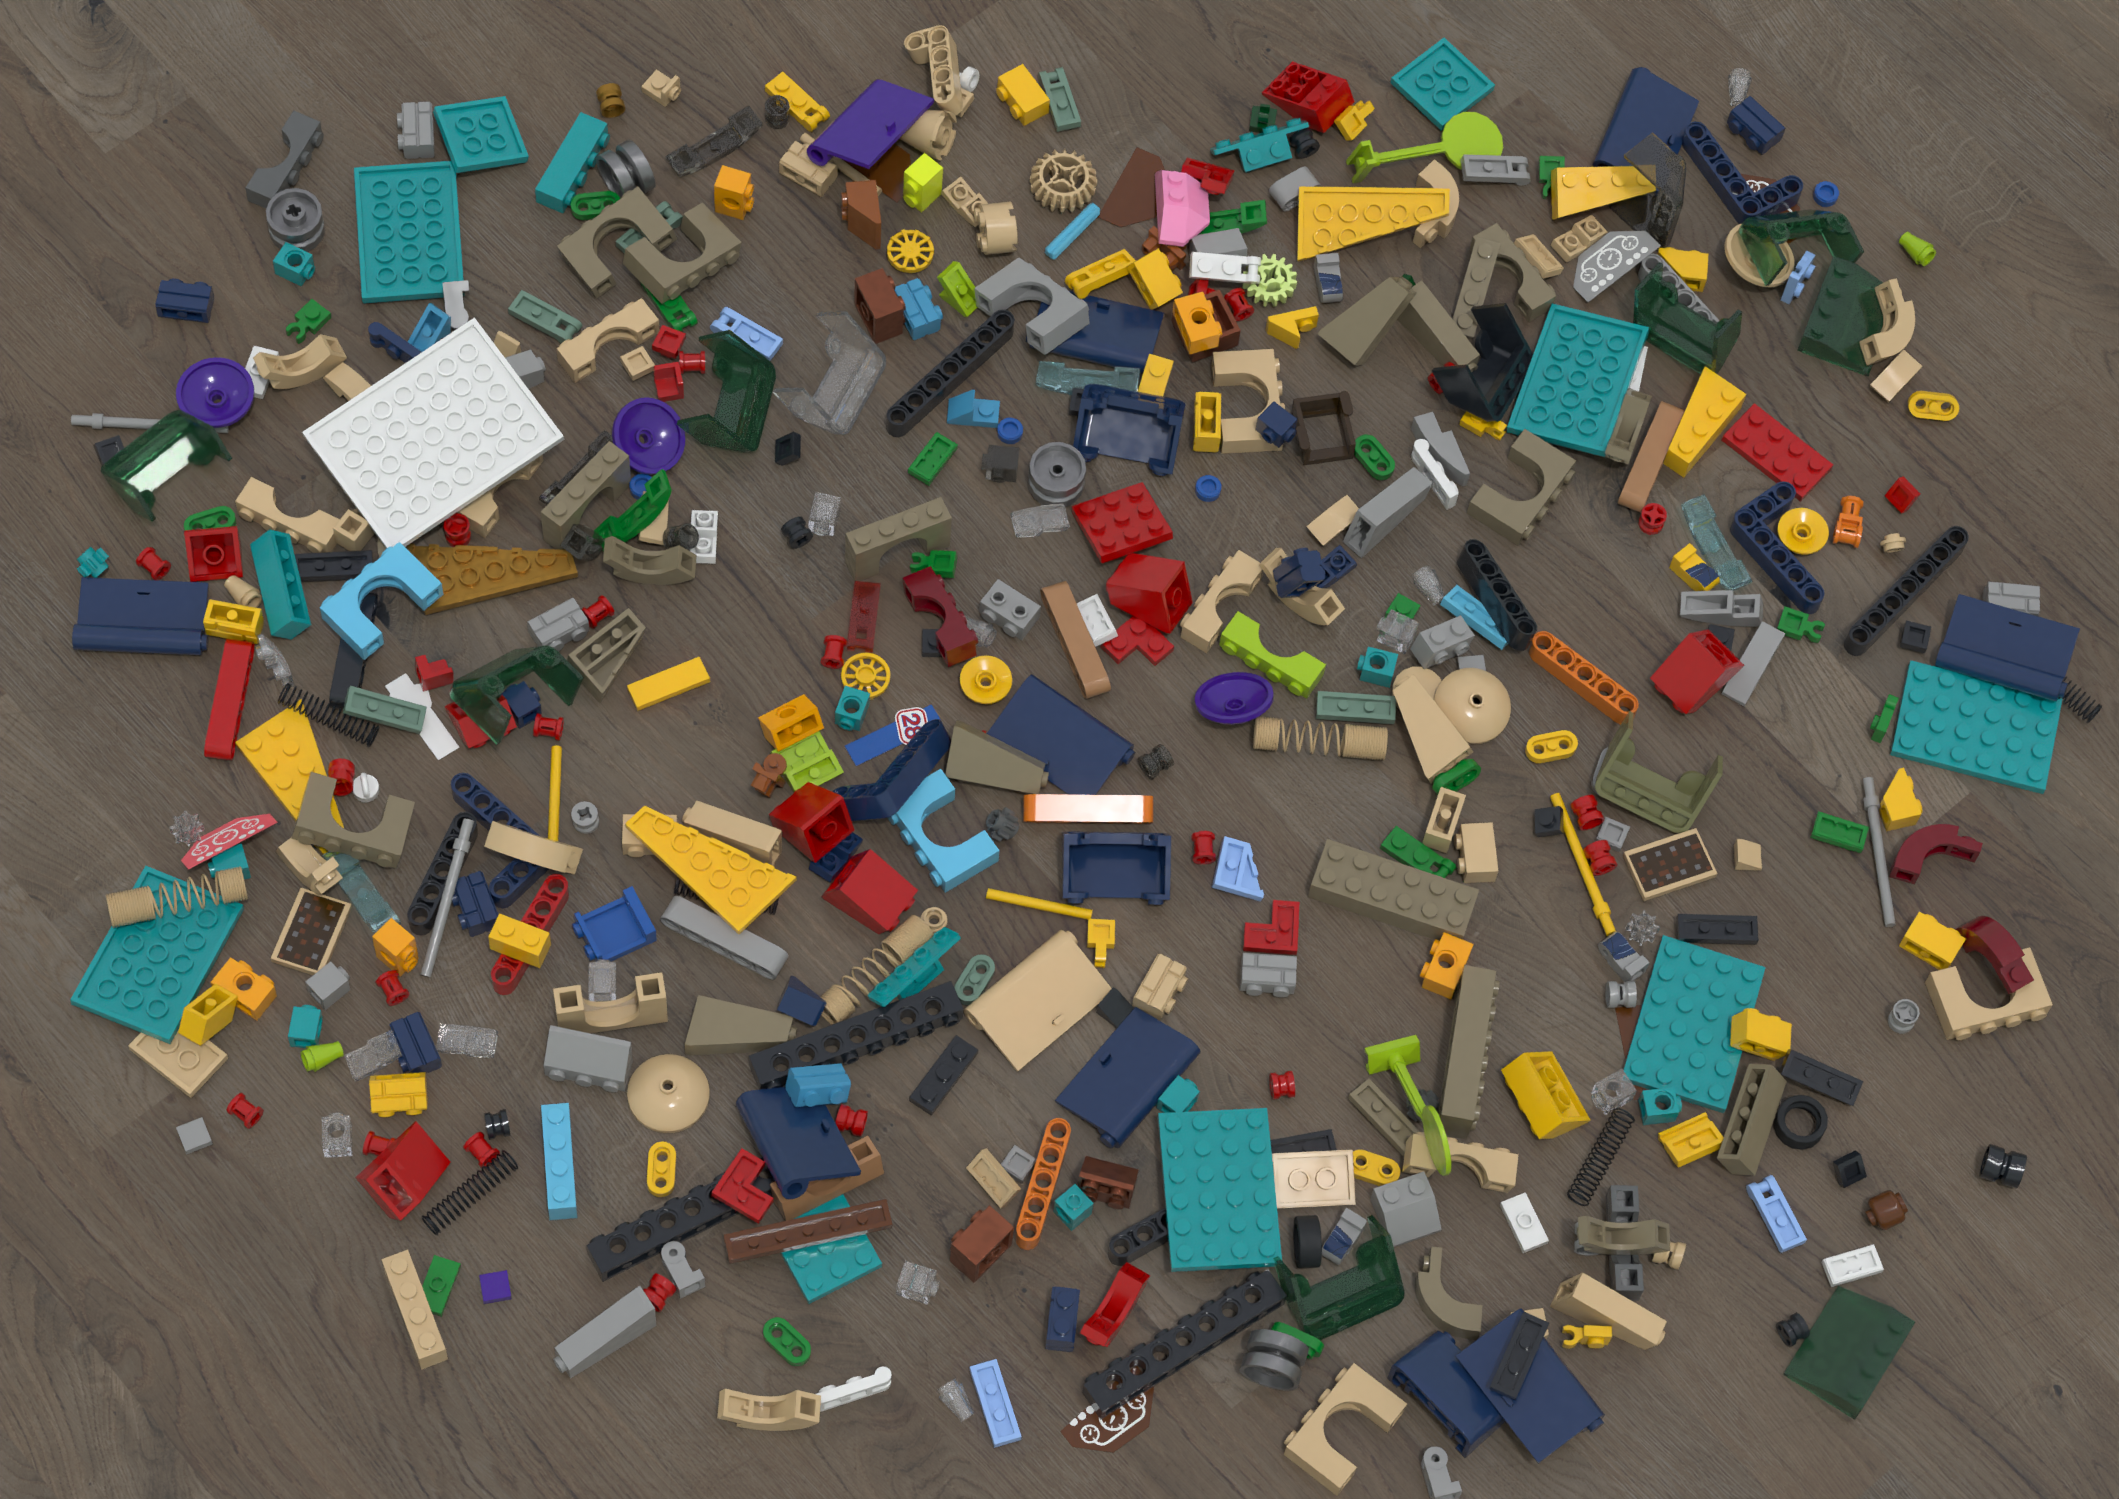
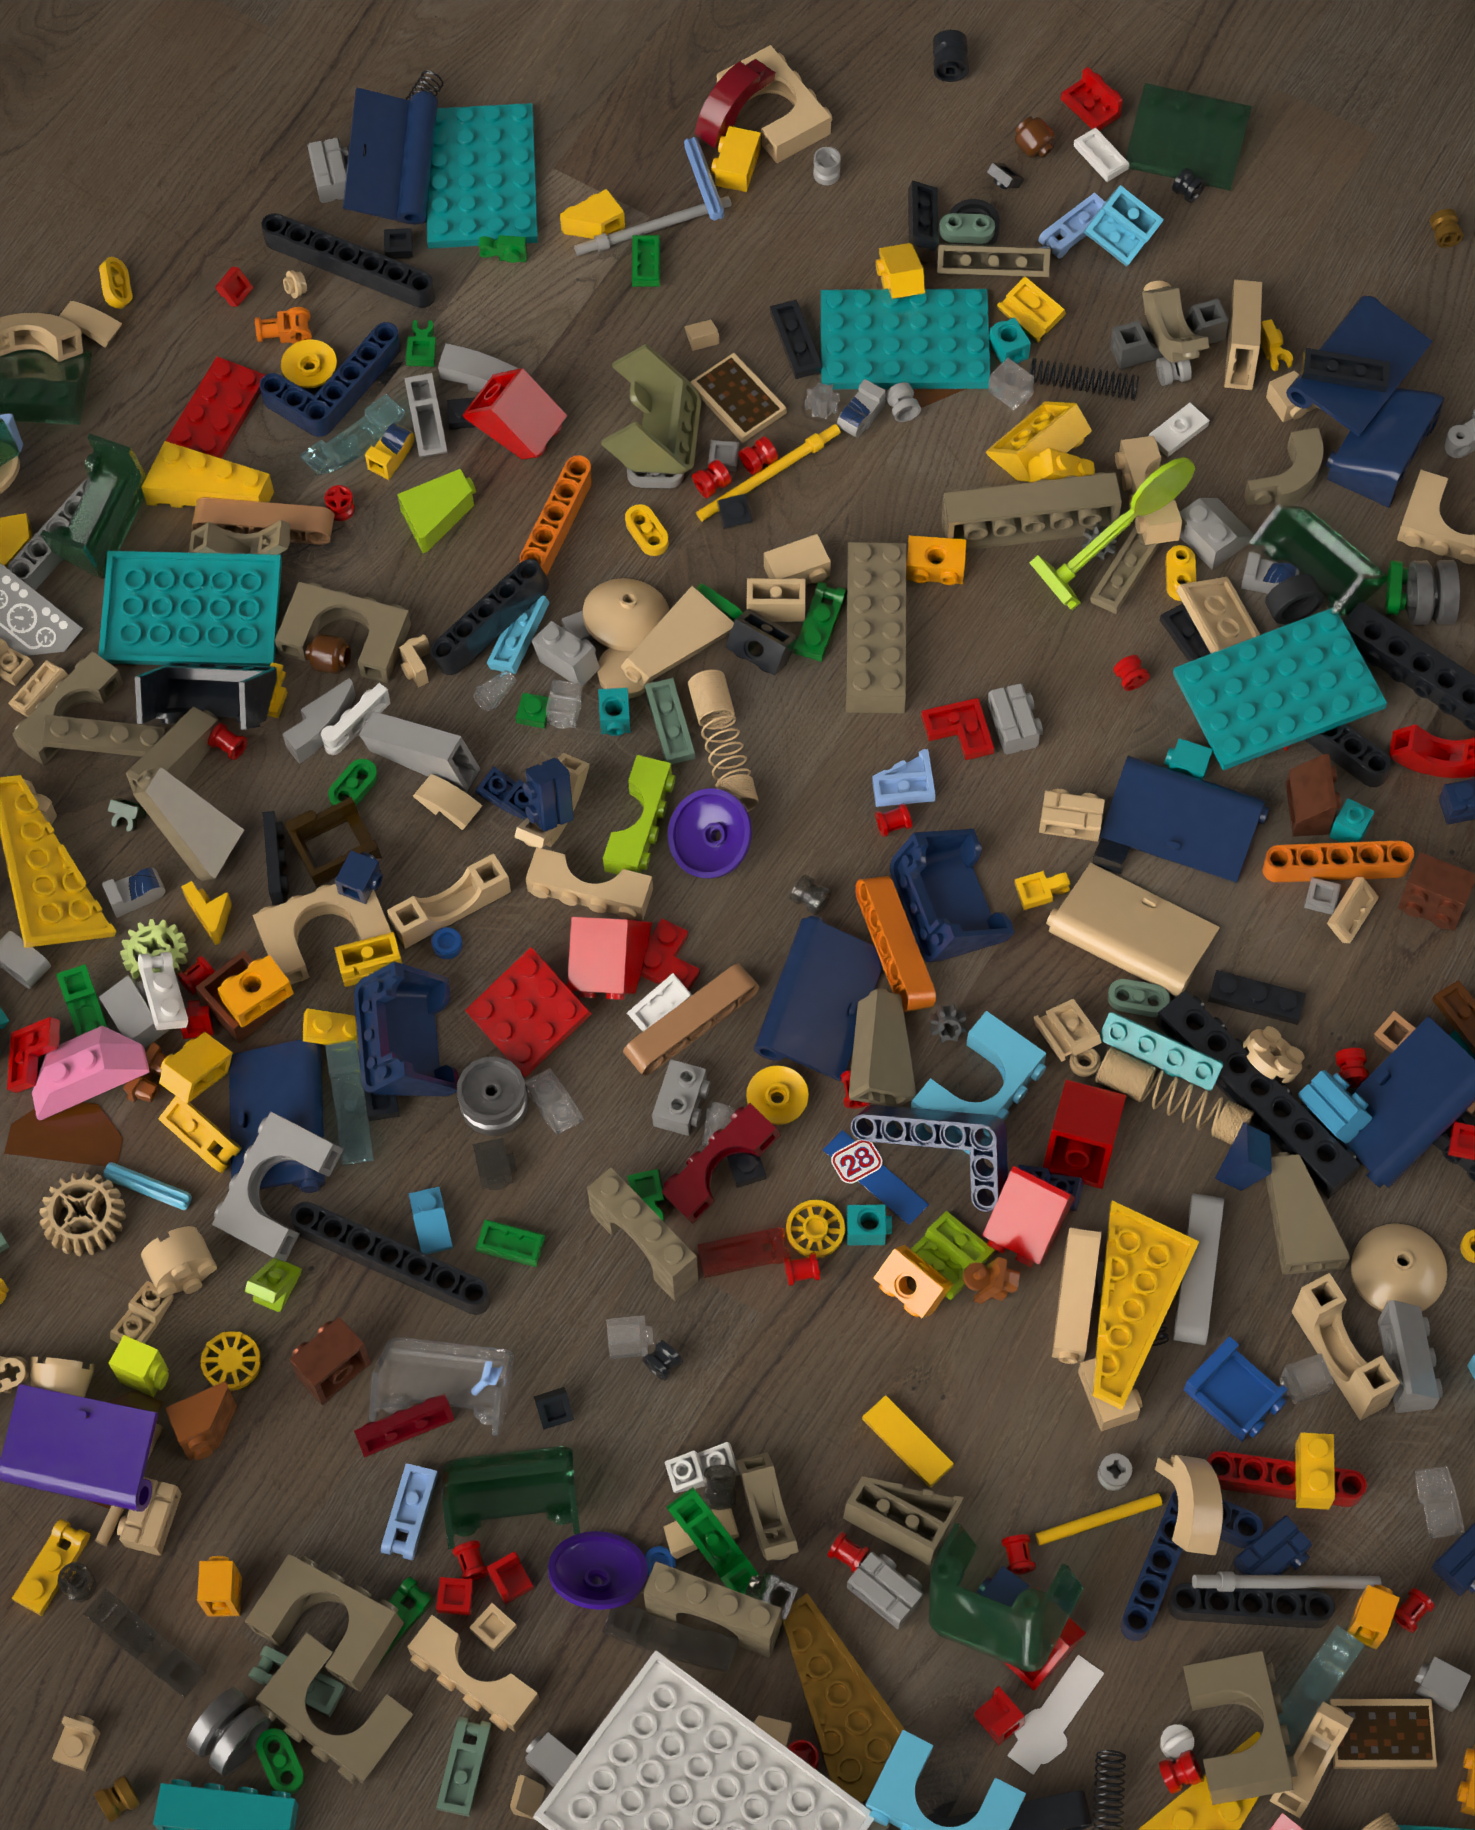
camera: 100 degrees left, 0 degrees up
(384, 709) = (1078, 1750): sand green plate -> none
(813, 347) = (404, 1425): none -> dark red plate
(827, 405) = (489, 1377): none -> light blue hand
(896, 1063) = (1273, 1054): none -> tan plate
(920, 313) = (305, 1322): dark azure brick -> none
(963, 910) = (1067, 1030): none -> tan plate
(1010, 430) = (442, 1173): blue tile -> none
(1039, 904) = (1021, 965): yellow bar -> none
(1233, 475) = (477, 887): none -> tan arch
(1323, 382) = (275, 857): none -> black plate
(1405, 795) = (753, 629): none -> black brick
(1477, 530) = (412, 665): none -> tan bracket
(1497, 1090) = (1058, 465): none -> yellow brick
(1502, 469) = (328, 654): none -> reddish brown head
(1623, 589) = (436, 506): none -> lime slope
(1755, 1243) = (1123, 225): none -> medium azure brick
(1791, 1103) = (966, 228): none -> sand green plate
(1914, 905) = (704, 178): none -> medium blue axle
(1915, 1277) = (1093, 100): none -> red bracket
(1929, 842) = (635, 189): dark red arch -> none

